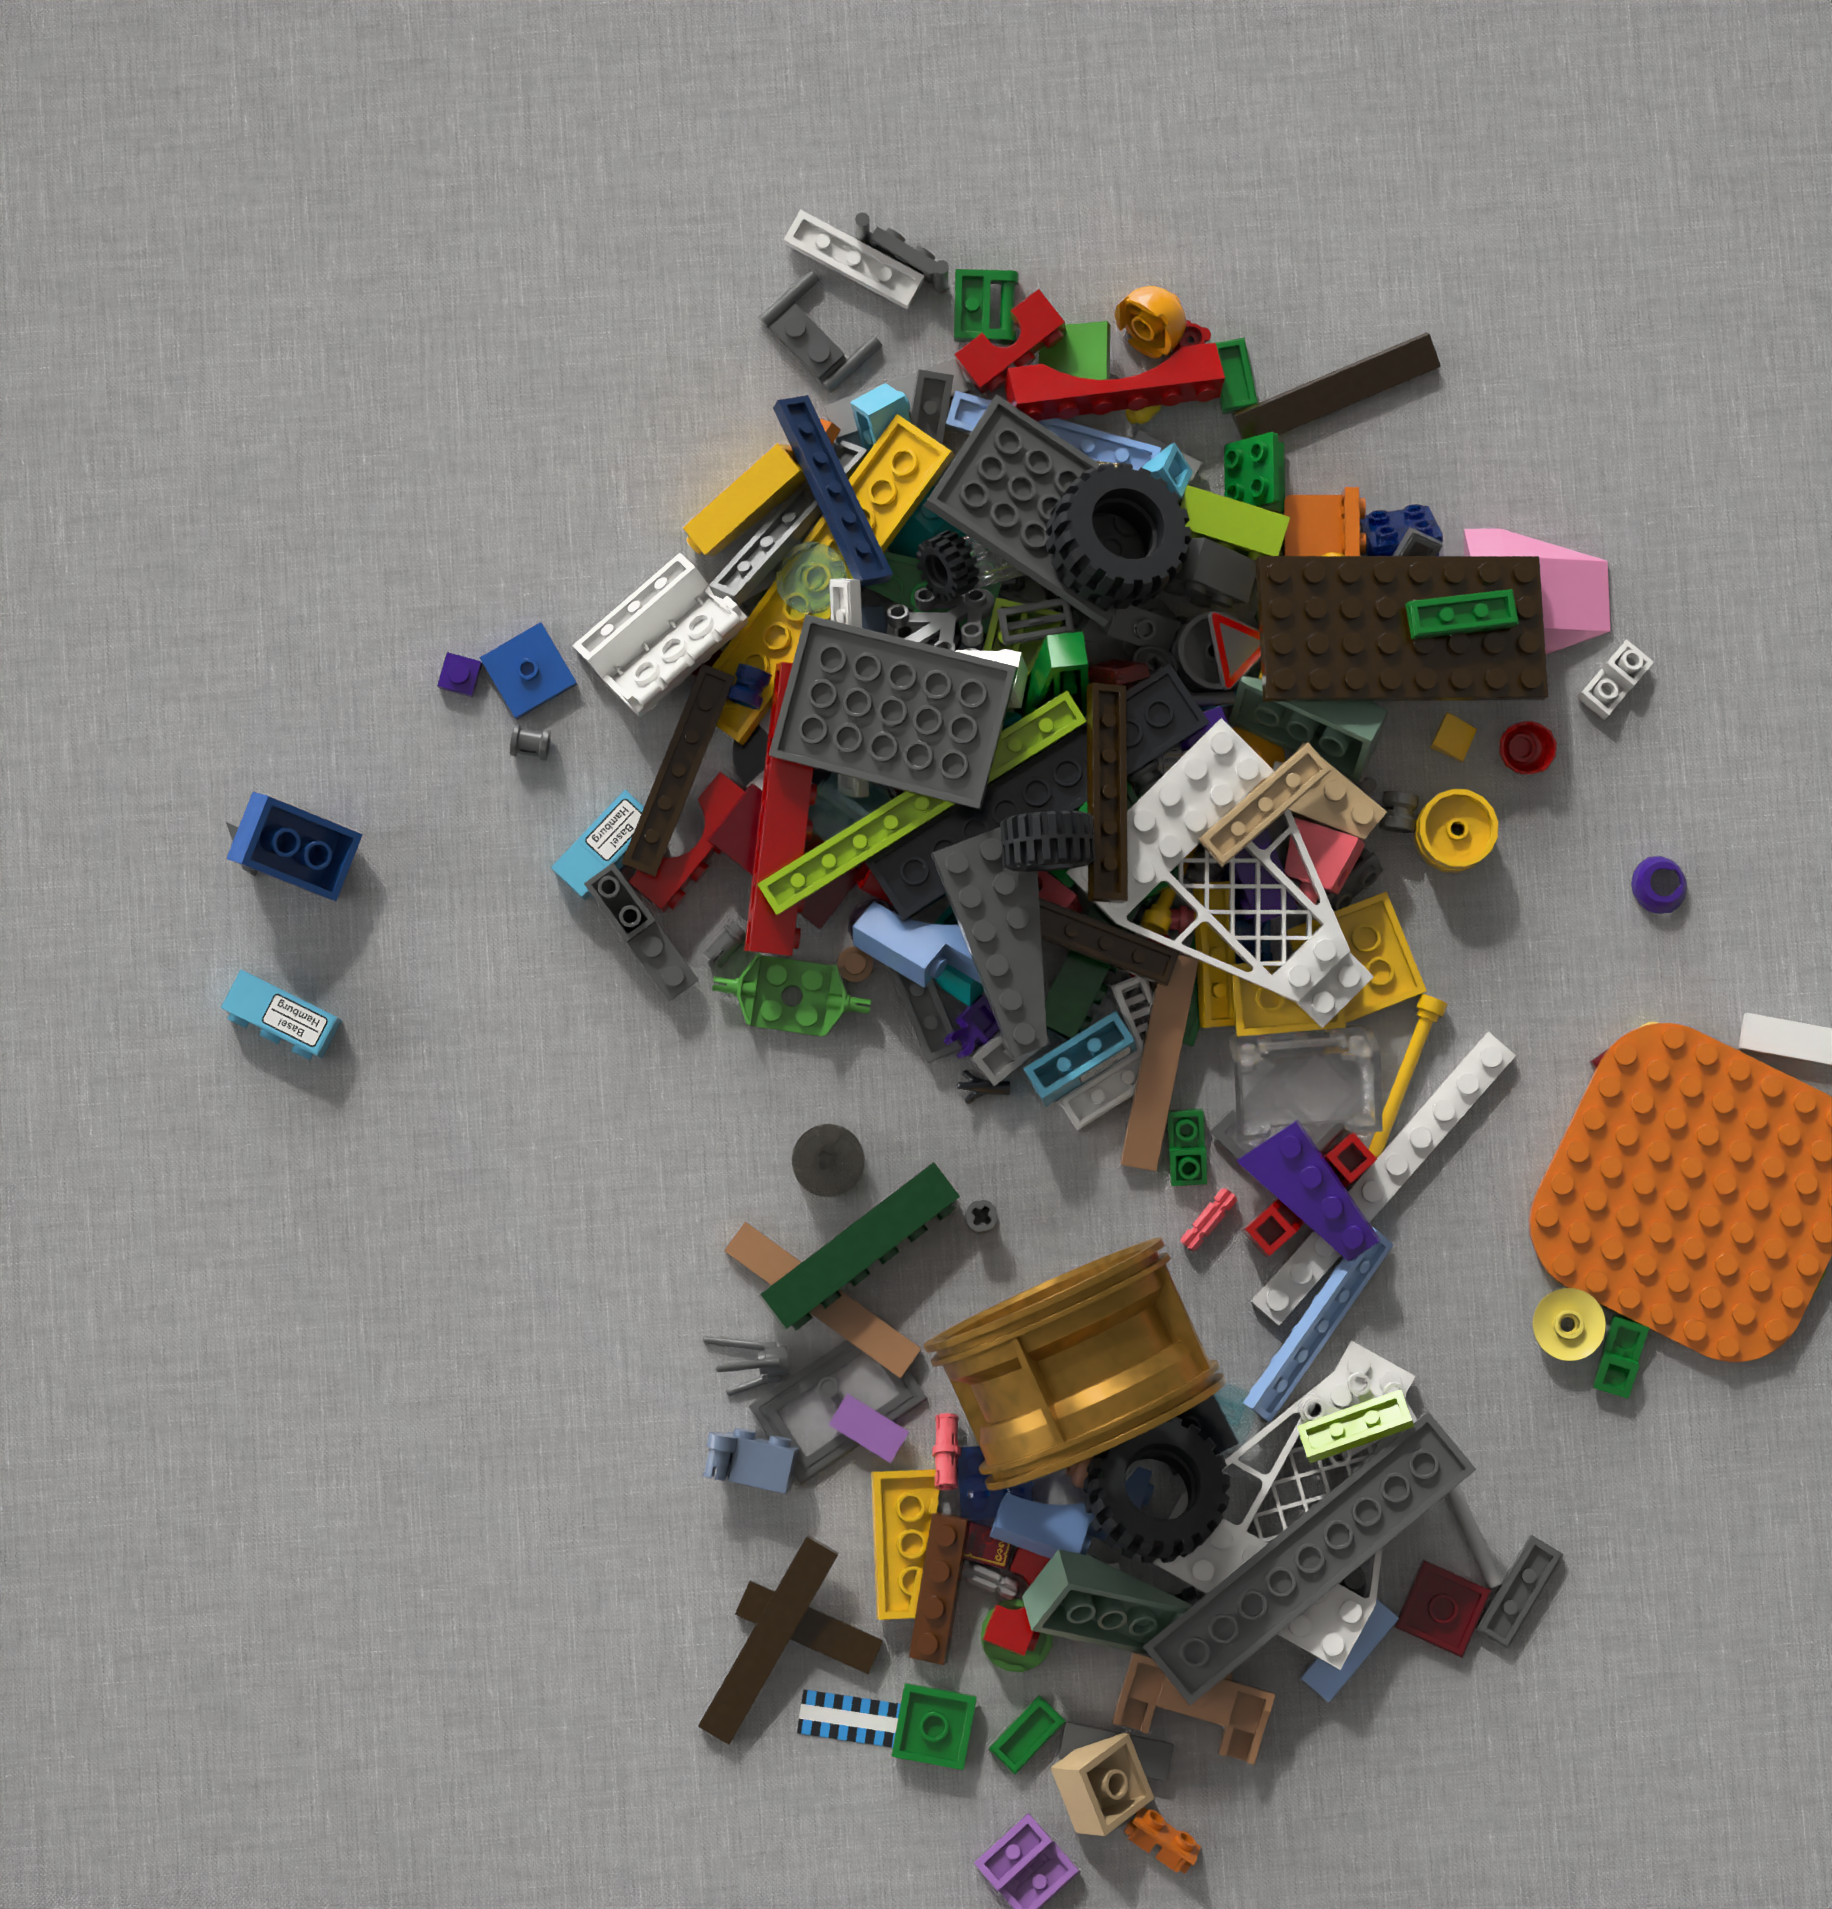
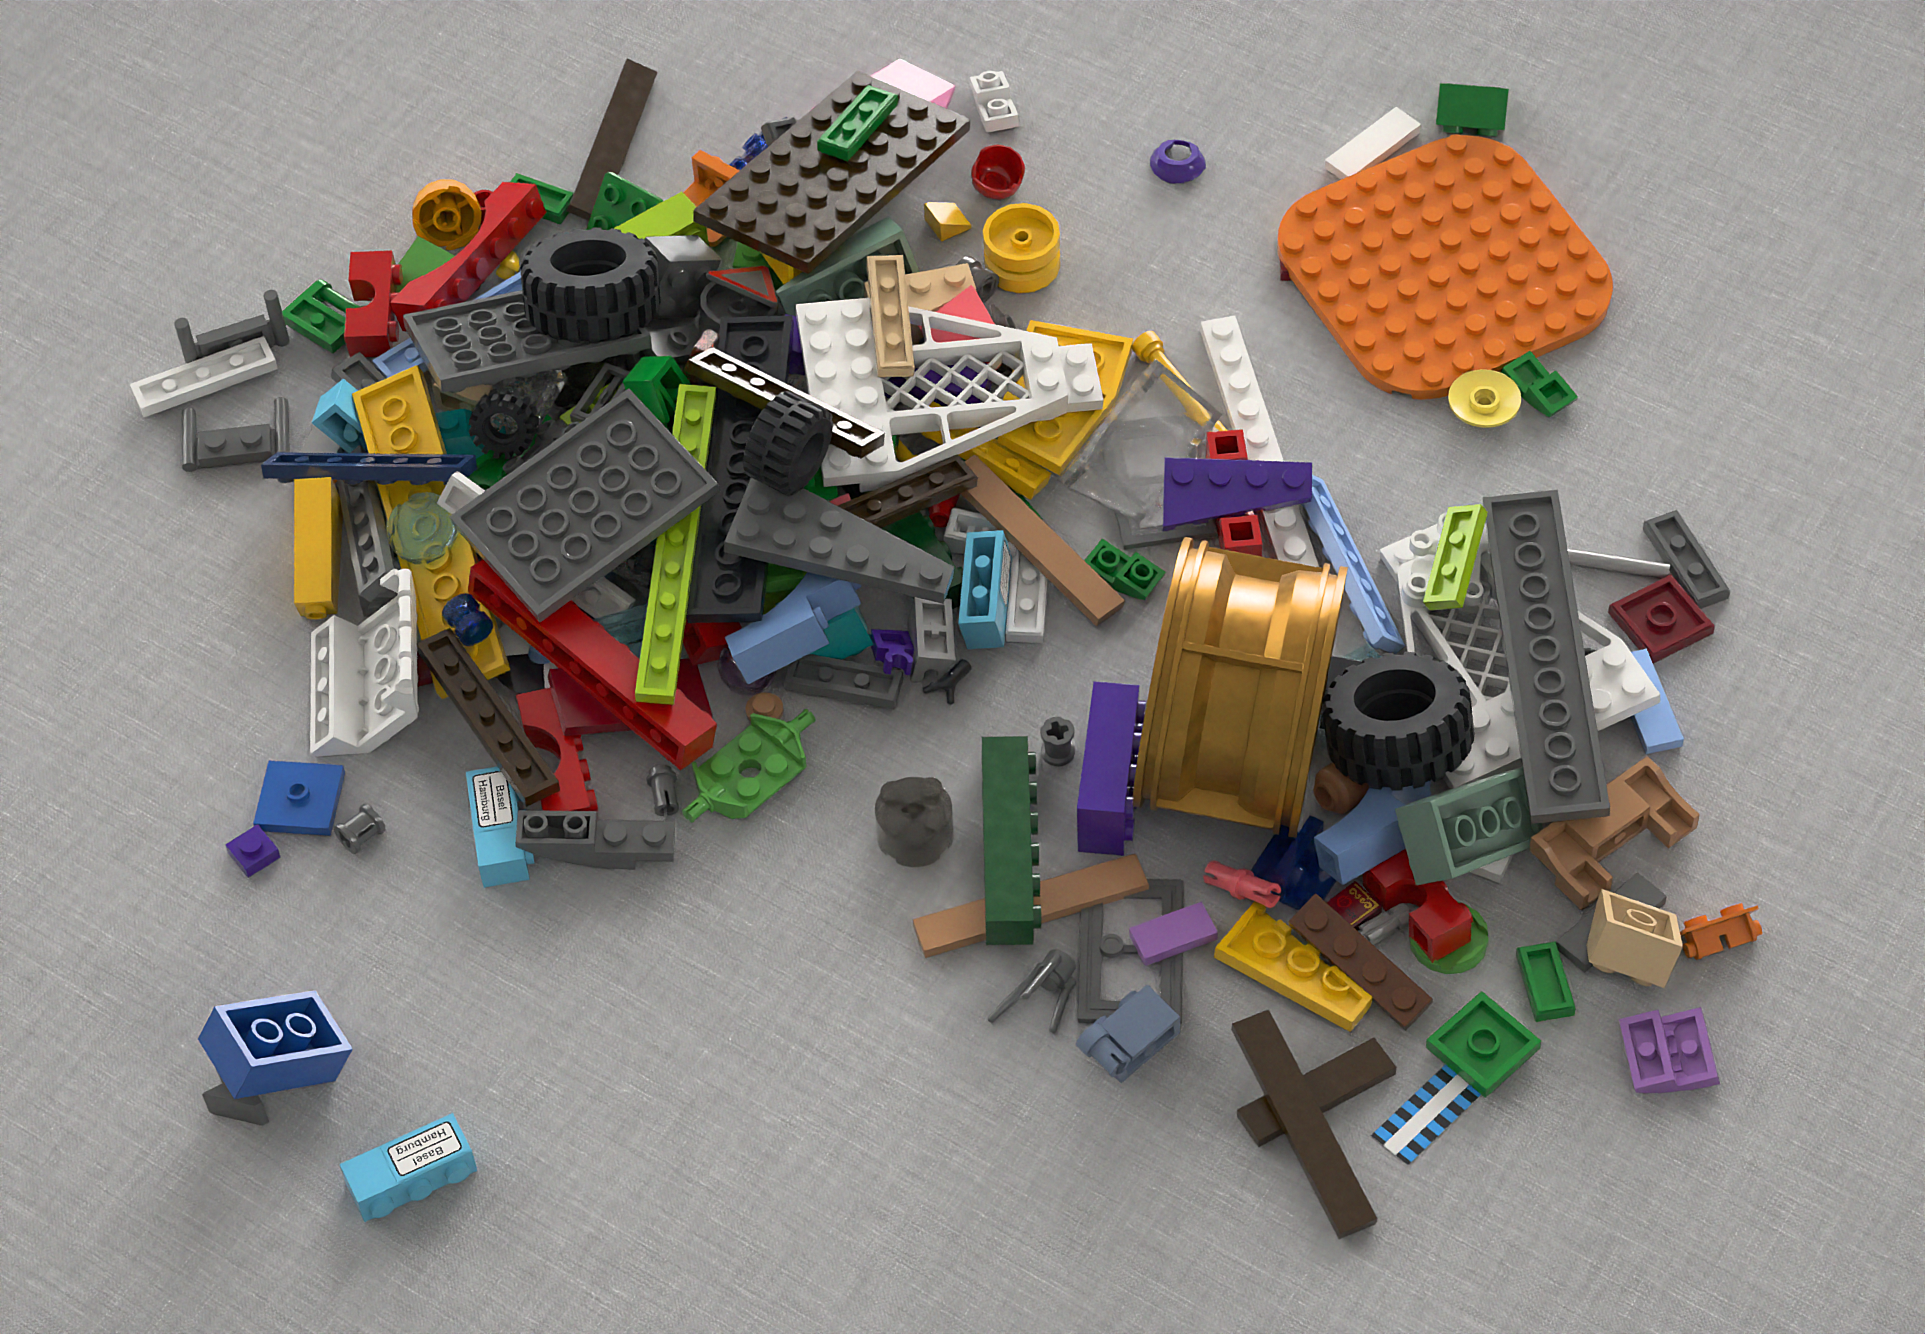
camera: 50 degrees left, 30 degrees down
(975, 1280) = (1109, 769): none -> dark purple brick

